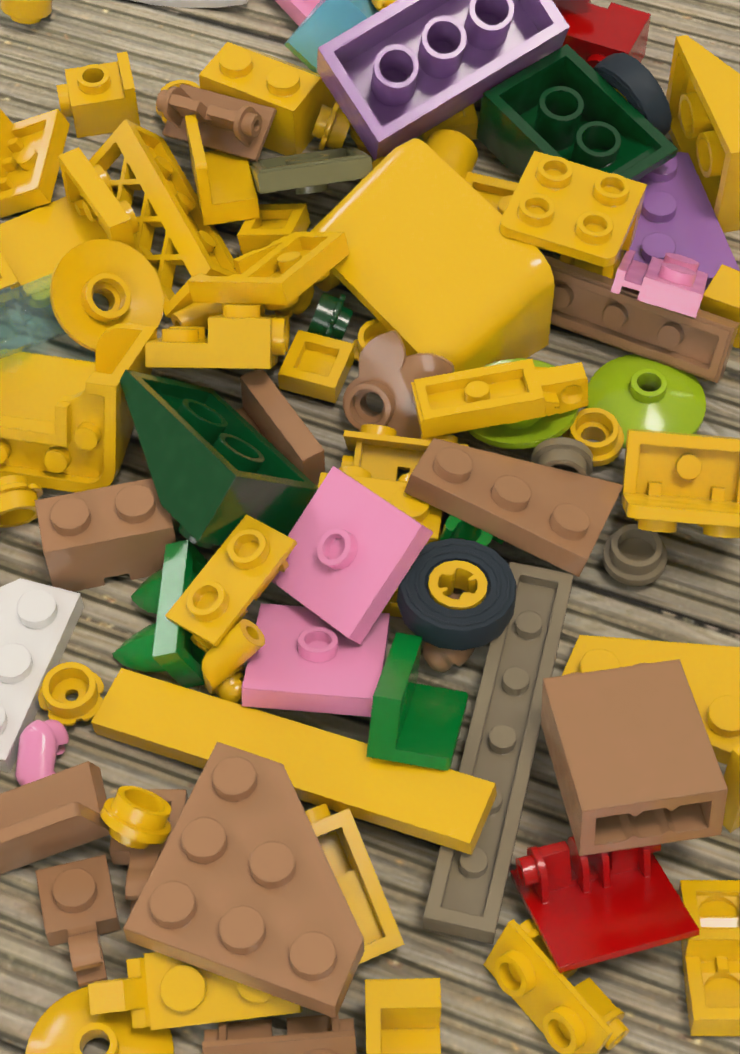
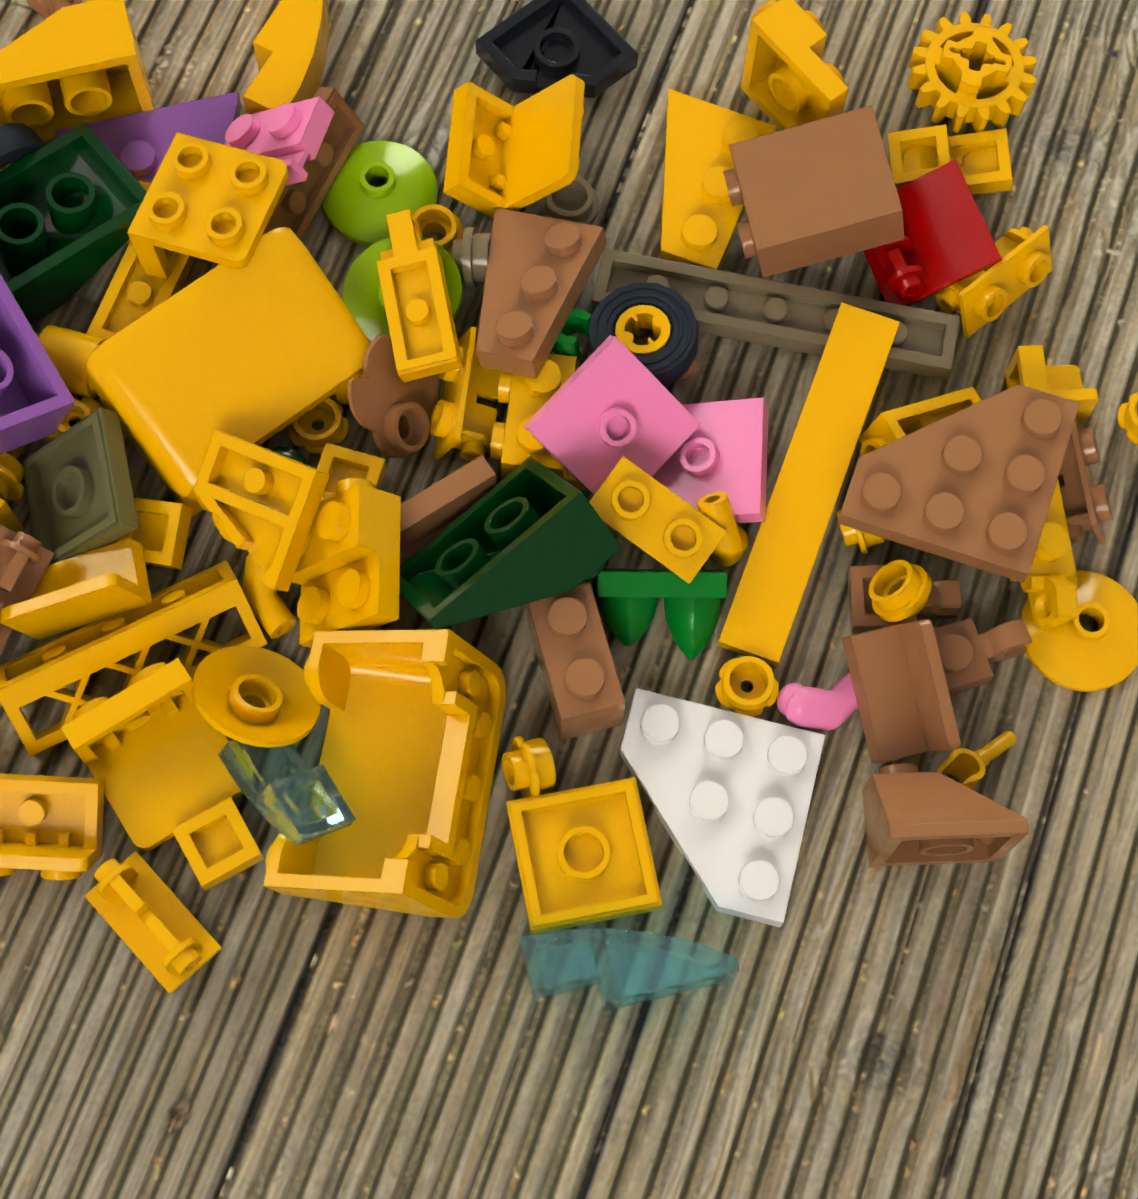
camera: 95 degrees left, 15 degrees up
(411, 719) = (782, 370): green panel -> none

